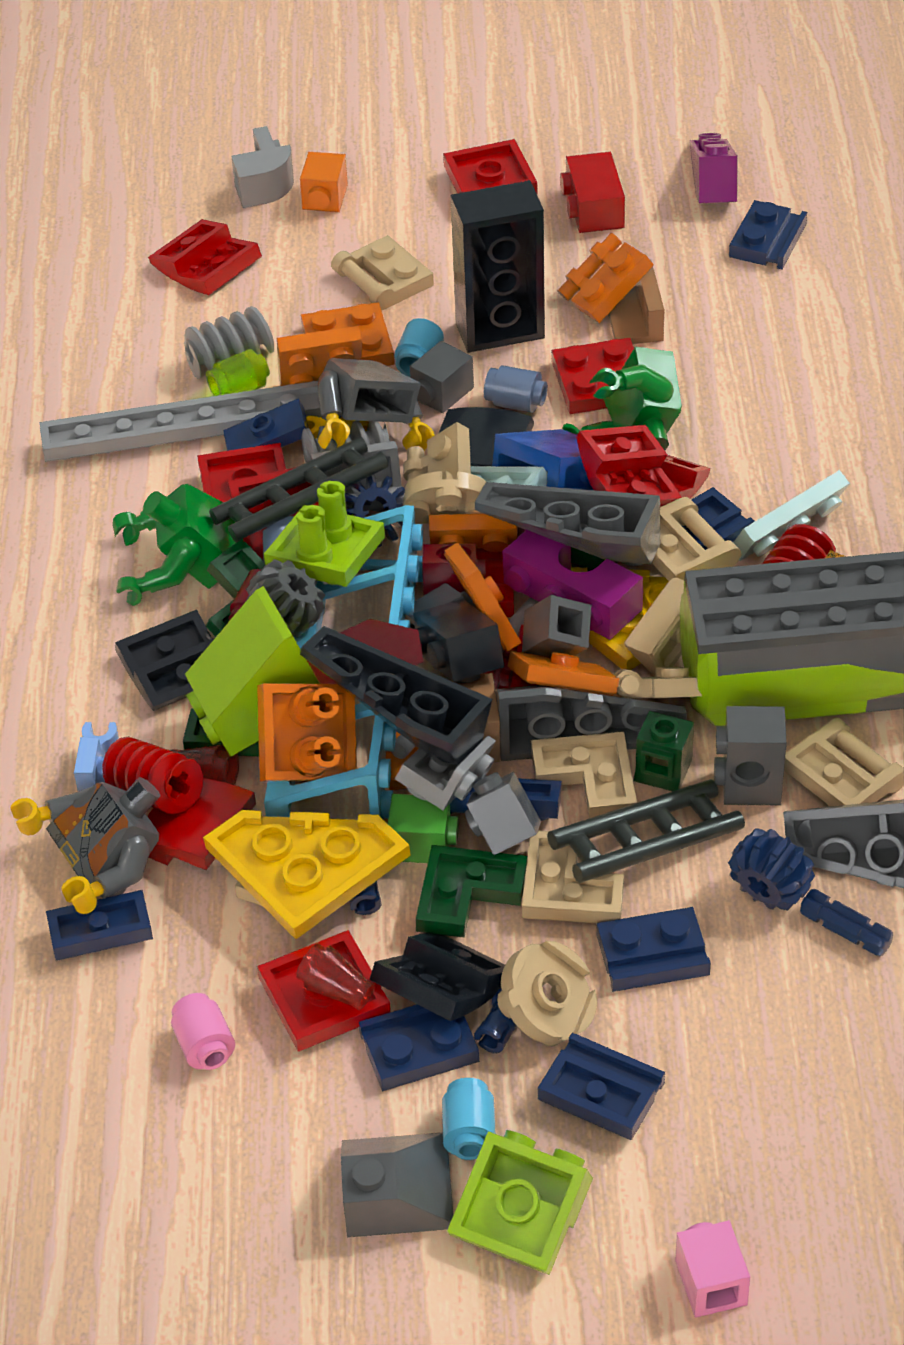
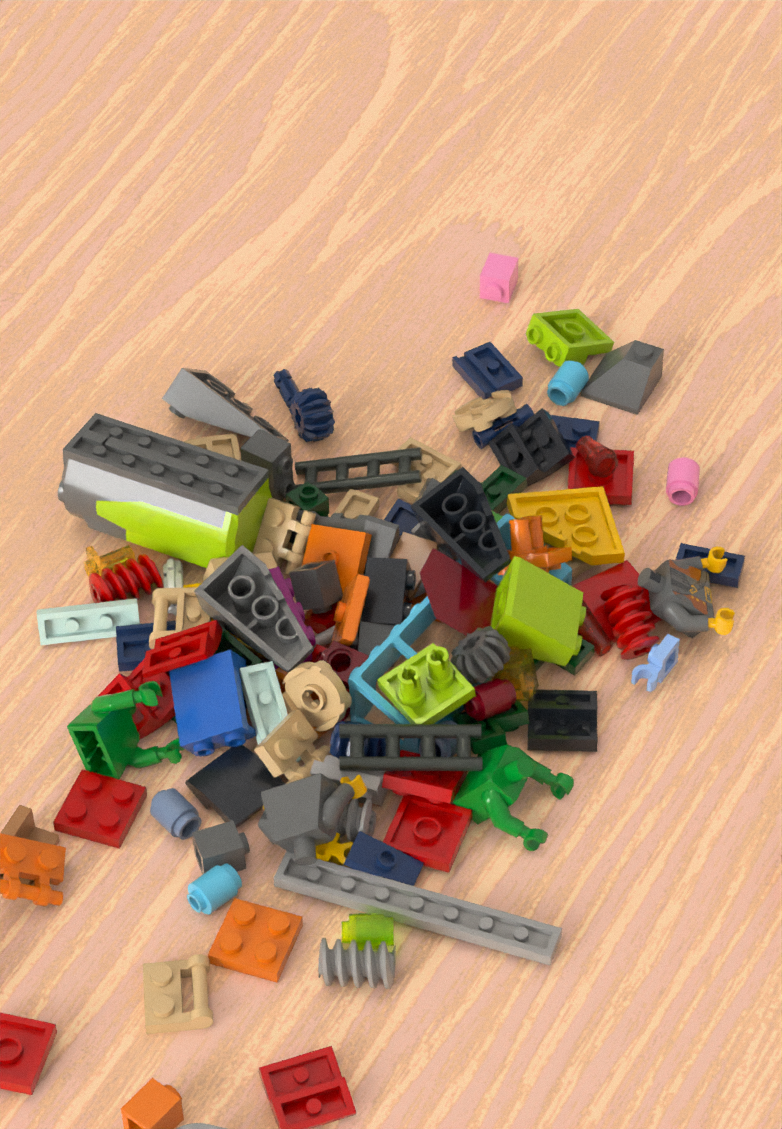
camera: 150 degrees left, 0 degrees up
(306, 355) = (306, 886): orange plate -> none
(498, 265) = (124, 853): black brick -> none
(653, 949) = (397, 423): dark blue plate -> none

